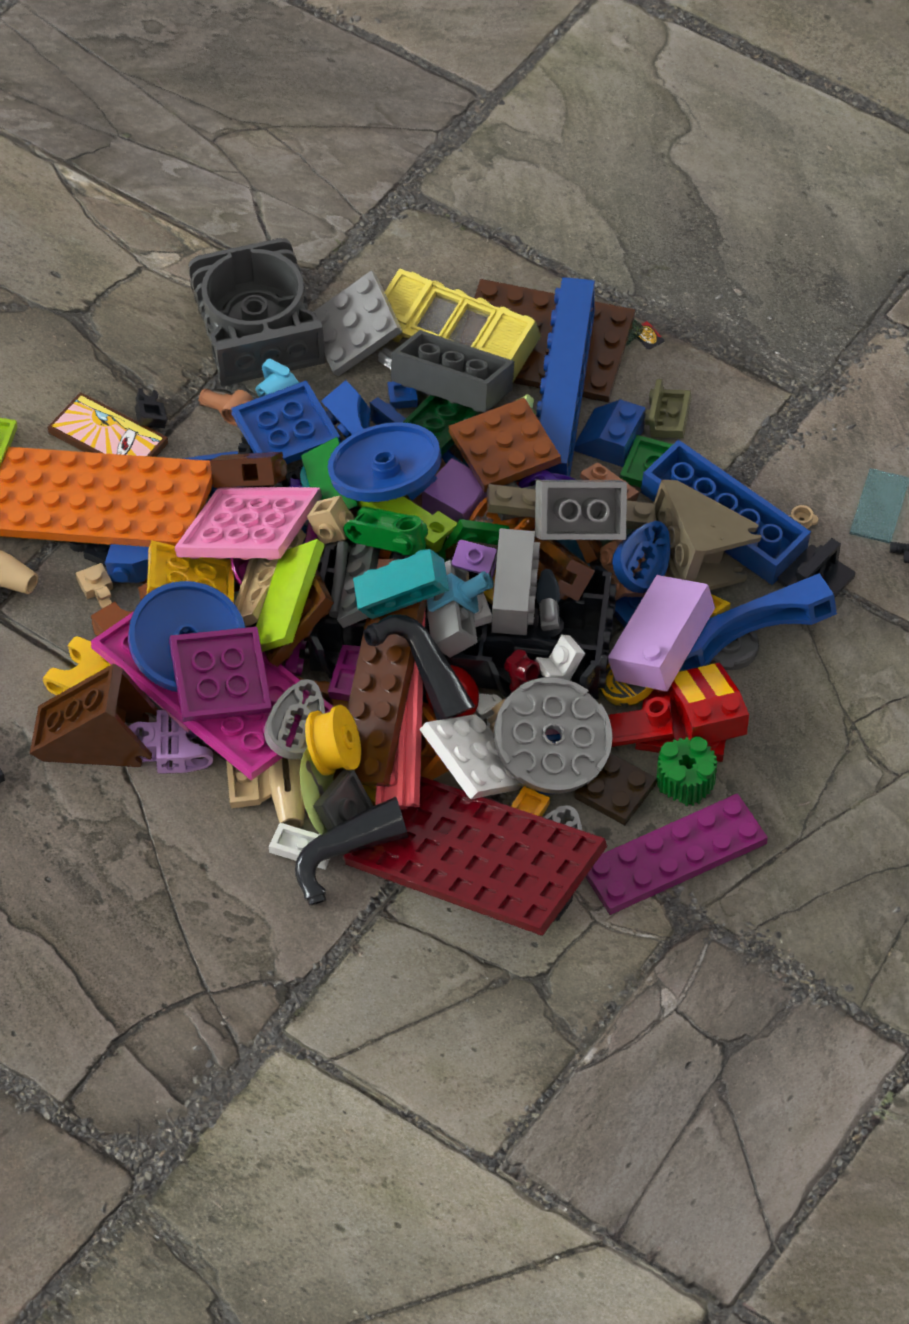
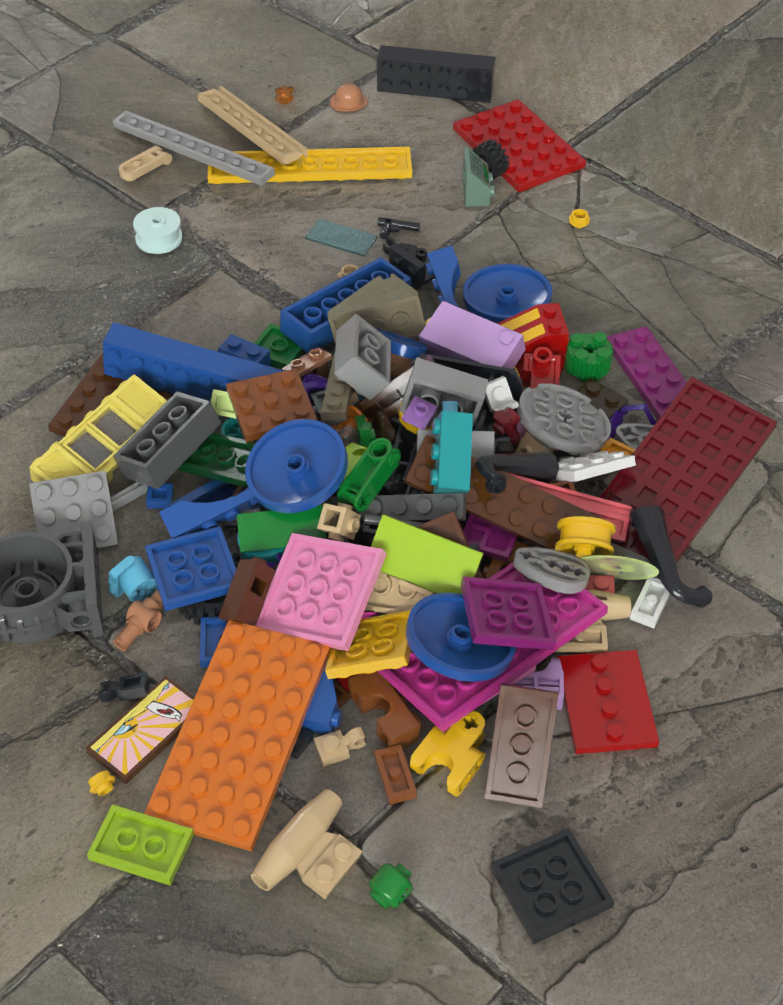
camera: 85 degrees left, 5 degrees down
(42, 411) = (101, 783): none -> yellow plate
(60, 631) = (395, 774): none -> dark orange plate
(168, 809) = (607, 702): none -> red plate
(585, 809) = (617, 419): none -> dark purple piece
(668, 411) = (221, 327): olive bracket -> none
(786, 676) = (505, 291): none -> blue dish
(831, 317) = (157, 230): none -> light aqua wheel
(858, 584) = (419, 253): none -> black arm

